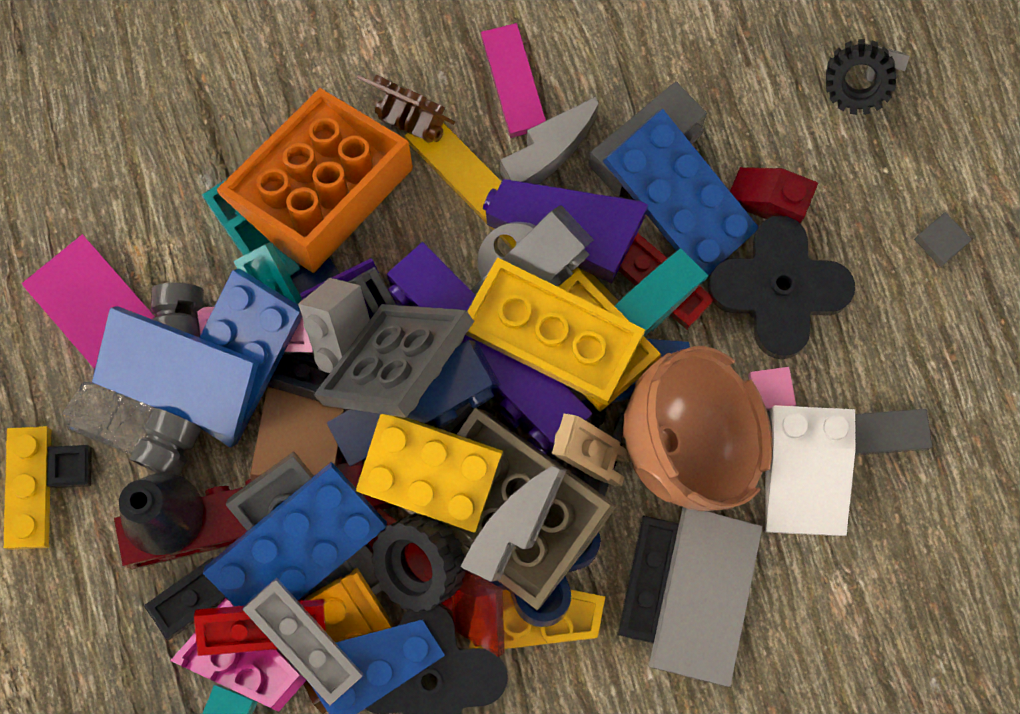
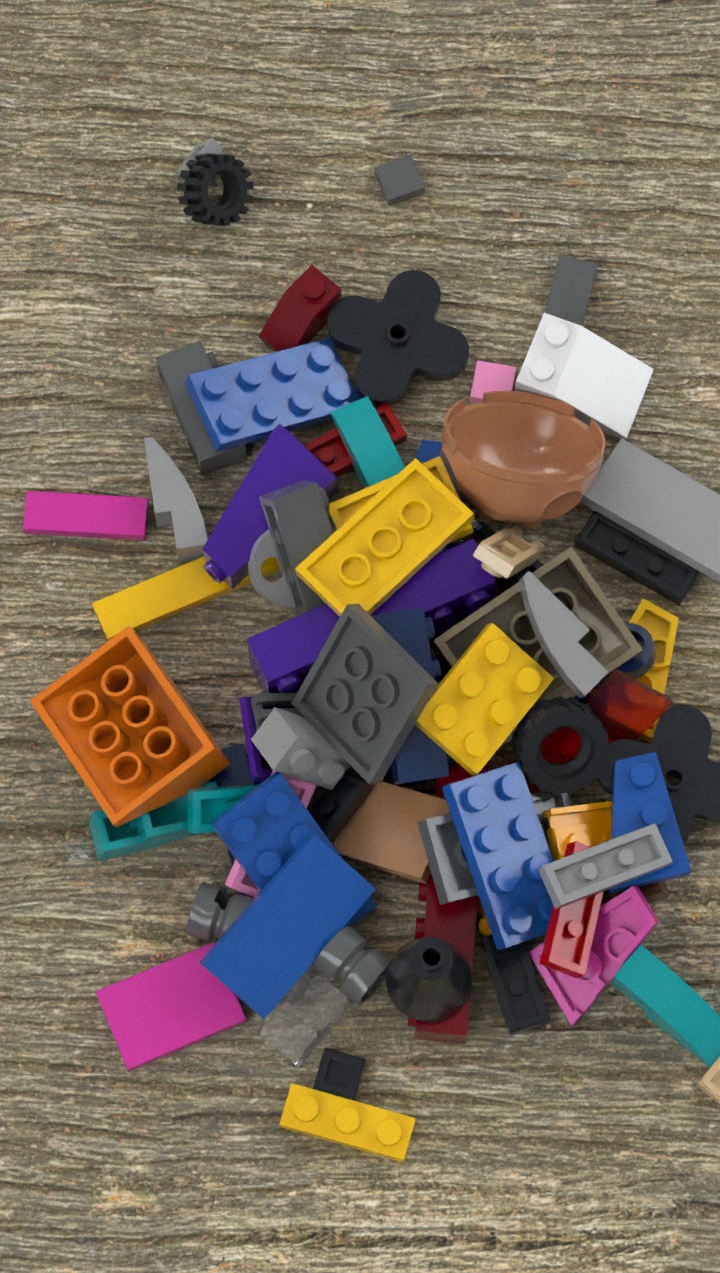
camera: 70 degrees left, 5 degrees down
(409, 110) = (69, 628): reddish brown hinge -> none

